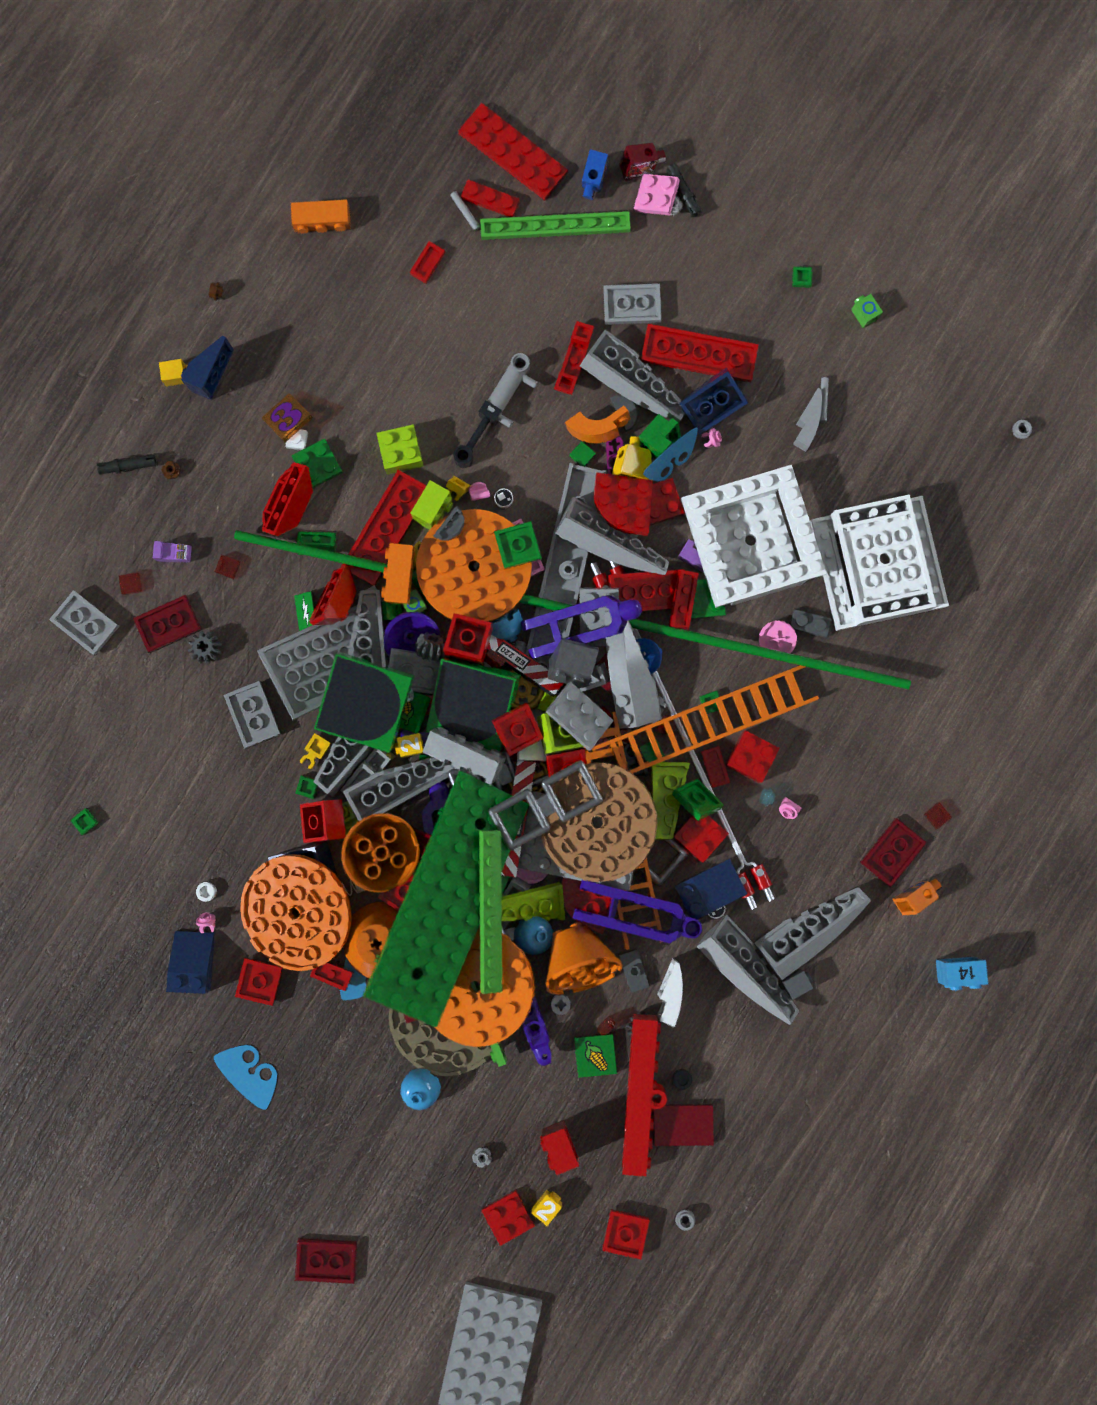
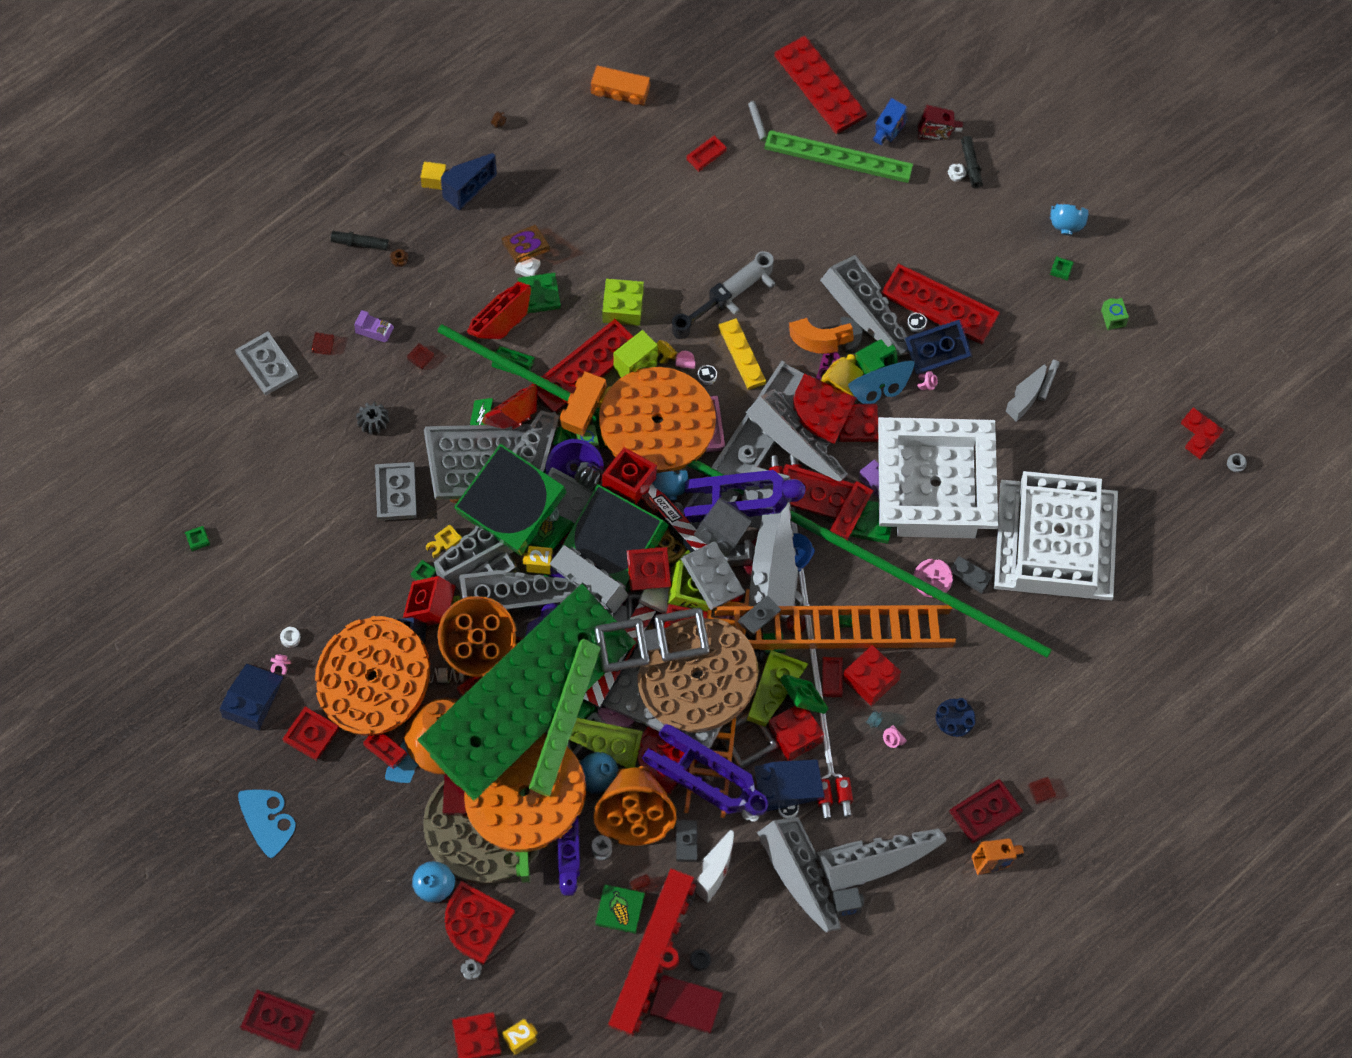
camera: 15 degrees right, 20 degrees down
(167, 624) = (344, 388): dark red tile -> none
(451, 526) = (648, 376): dark grey tile -> none
(470, 1112) = (475, 922): none -> red plate
(490, 198) = (784, 117): red plate -> none
(518, 545) = (706, 410): green tile -> none
(529, 465) = (742, 354): none -> yellow plate
(560, 1148) = (553, 972): red brick -> none
(575, 355) = (811, 282): red slope -> none
(582, 454) = (796, 358): green tile -> none
(632, 304) = (889, 243): light grey plate -> none
(635, 742) = (759, 615): none -> dark grey plate
(656, 194) = (944, 157): bright pink plate -> none
(683, 379) = (916, 322): none -> tile
(795, 224) = (1068, 218): none -> dark azure cylinder
(839, 771) = (955, 717): none -> dark blue dish
(961, 972) = (1018, 938): dark azure brick -> none
(984, 407) = (1205, 432): none -> red plate

